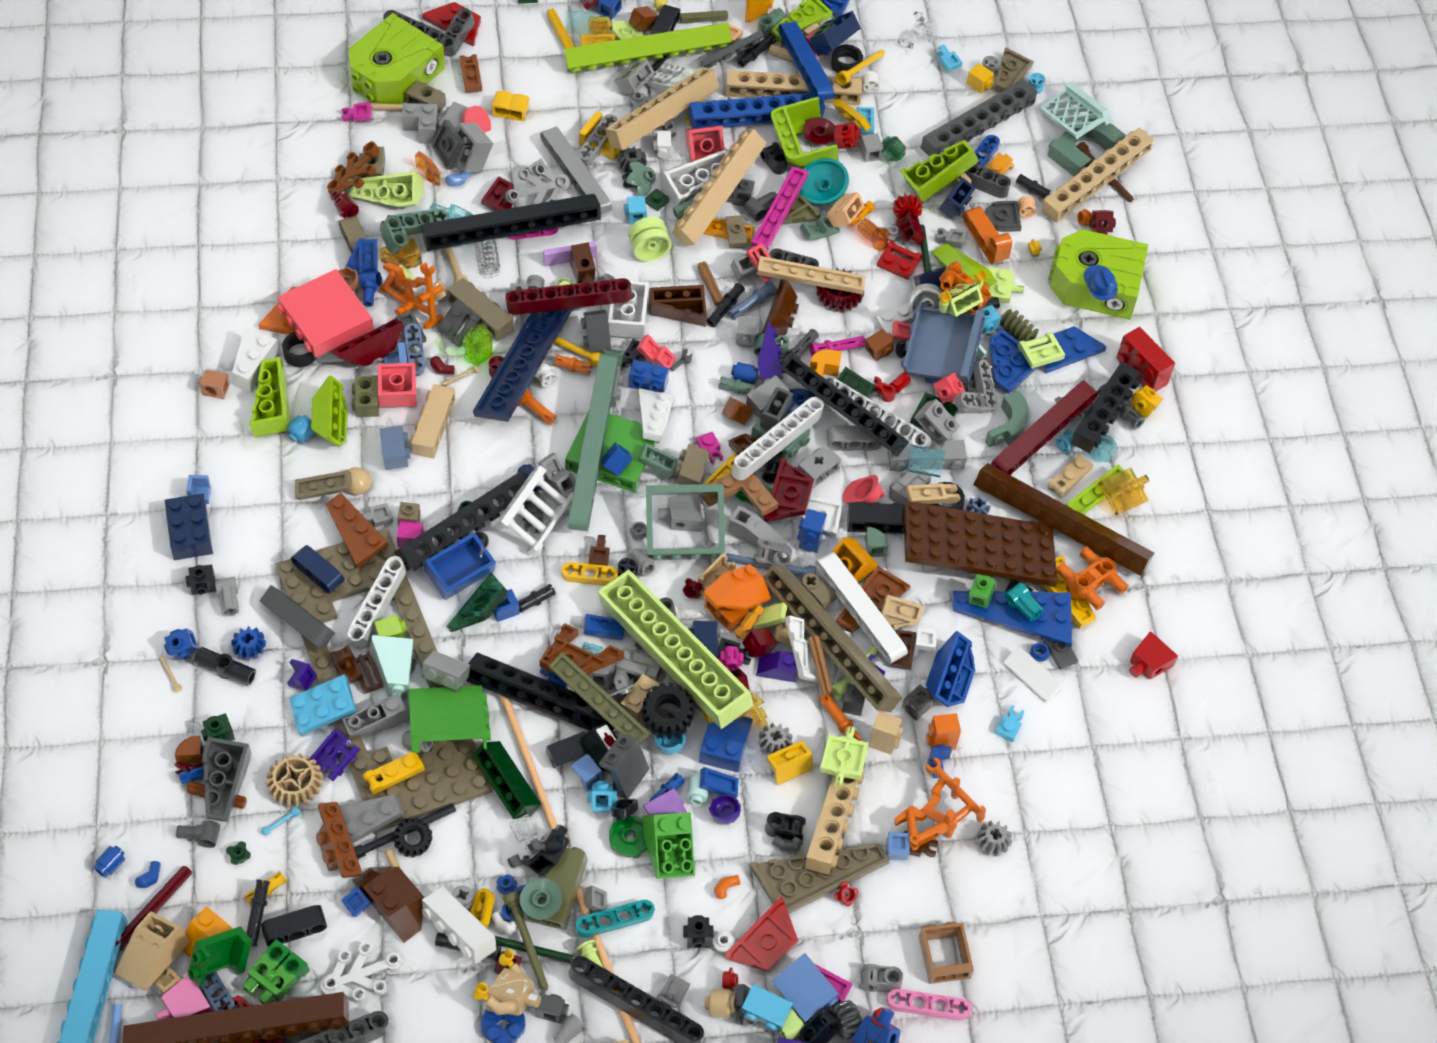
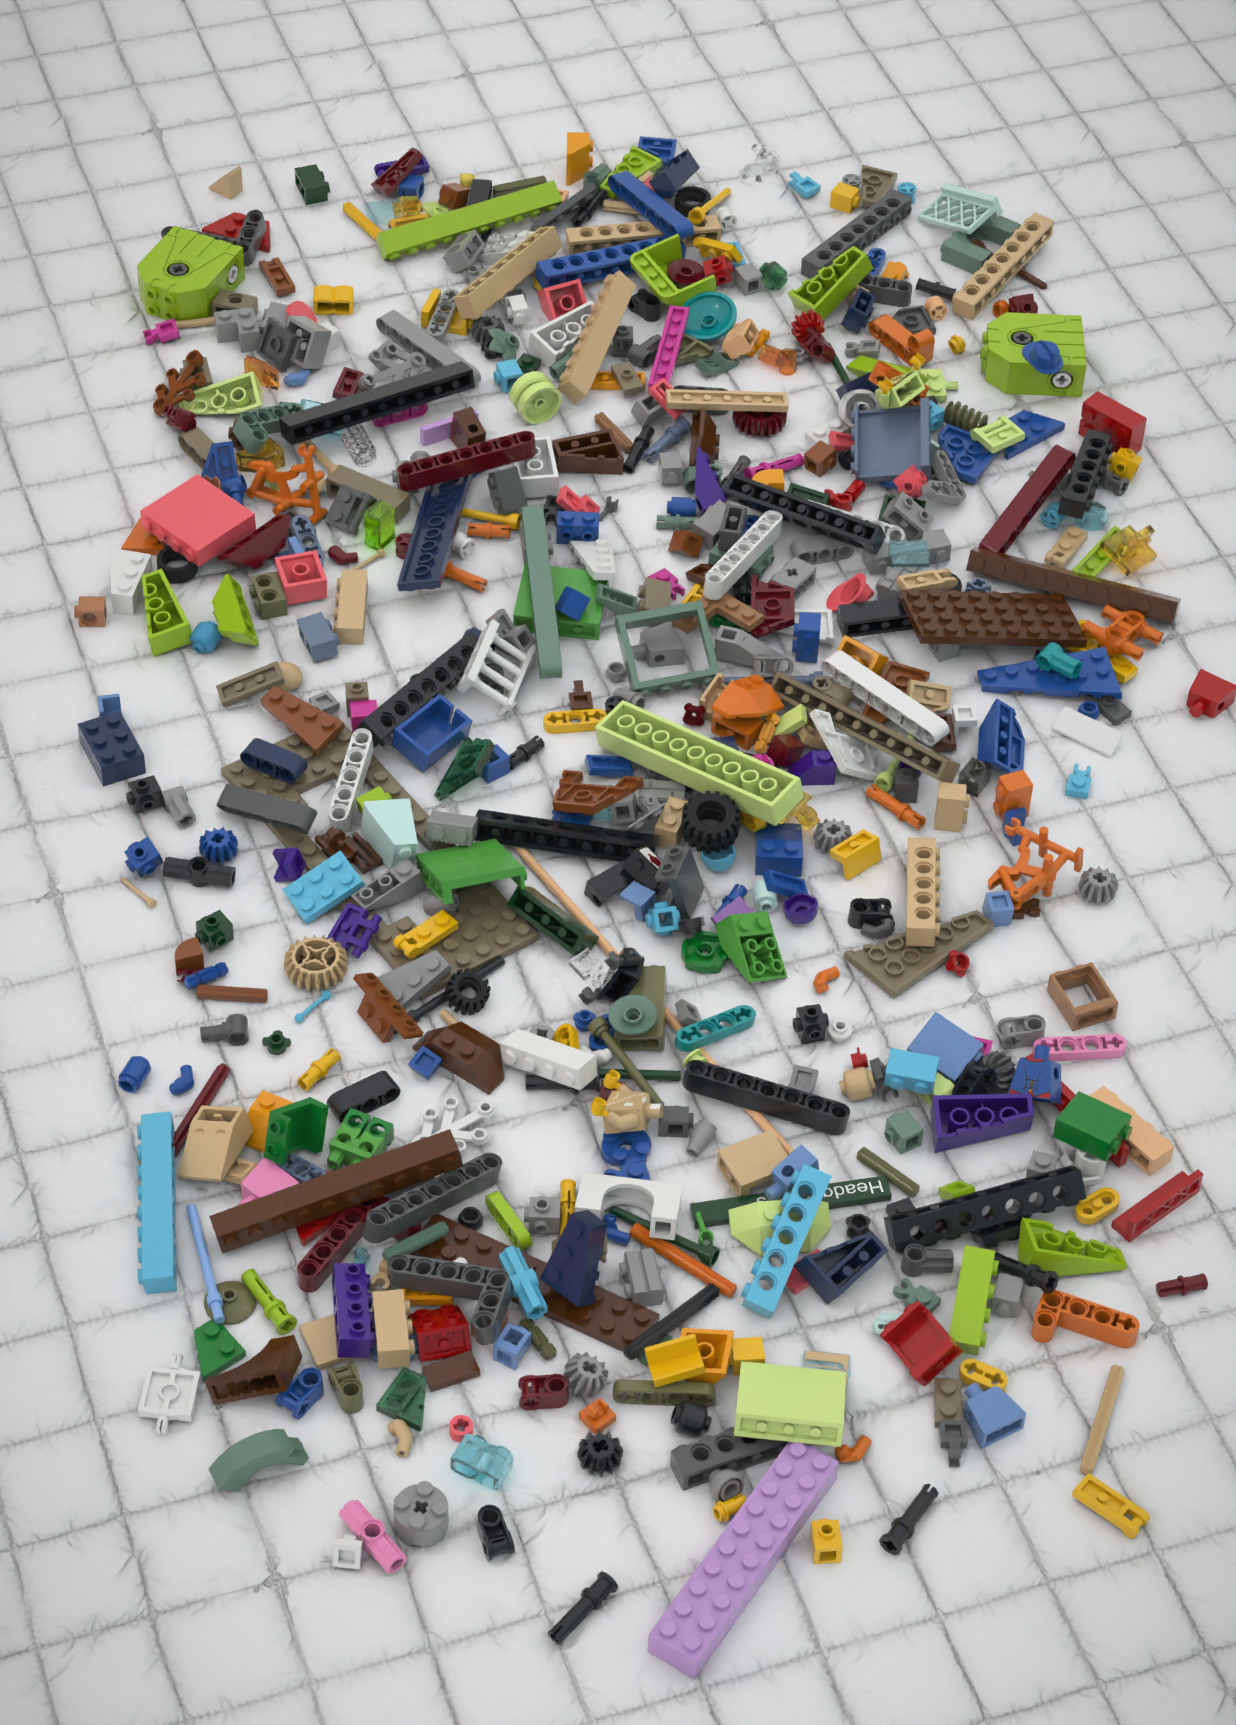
camera: 10 degrees left, 10 degrees down
(224, 773) = (236, 965): dark grey wedge -> none
(258, 903) = (318, 1078): black pin -> none
(598, 698) = (627, 819): olive tile -> none
(766, 940) = (886, 1018): red wing -> none
(820, 664) = (860, 754): medium nougat axle -> none
(844, 757) = (915, 833): yellowish green plate -> none
(875, 543) = (879, 639): sand green brick -> none
(897, 264) = (813, 384): red plate -> none
(982, 591) = (1010, 660): bright green brick -> none
(1017, 411) = (991, 498): sand green arch -> none

